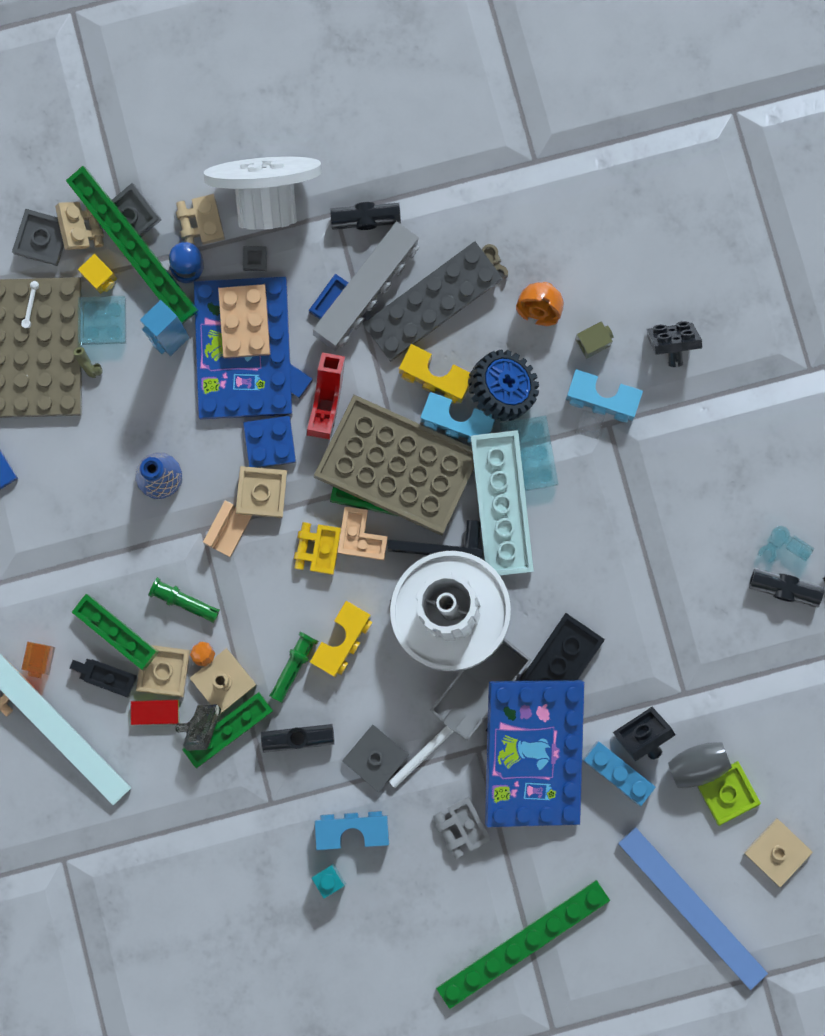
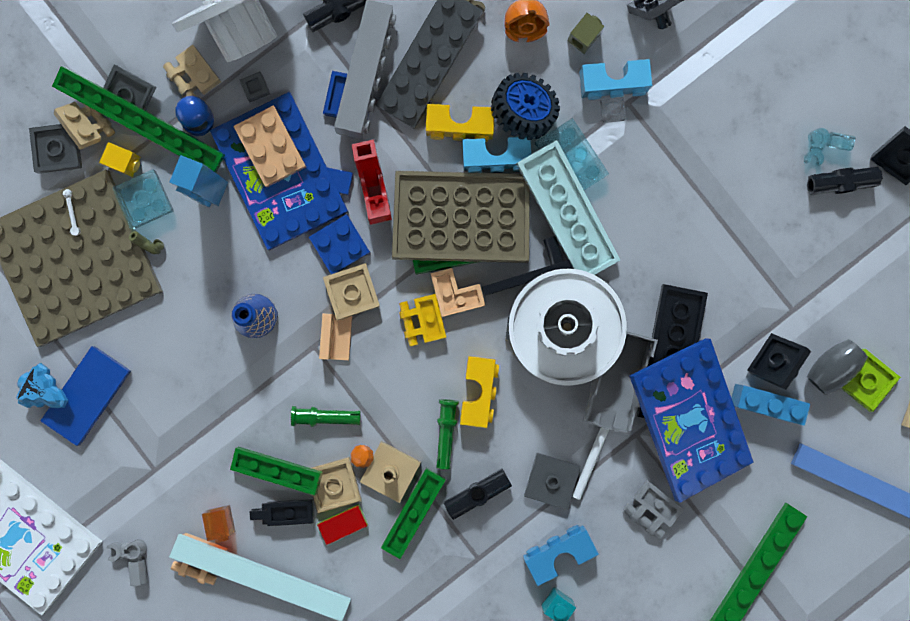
camera: 30 degrees left, 5 degrees up
(200, 727) = (388, 523): clear smoke plate -> none

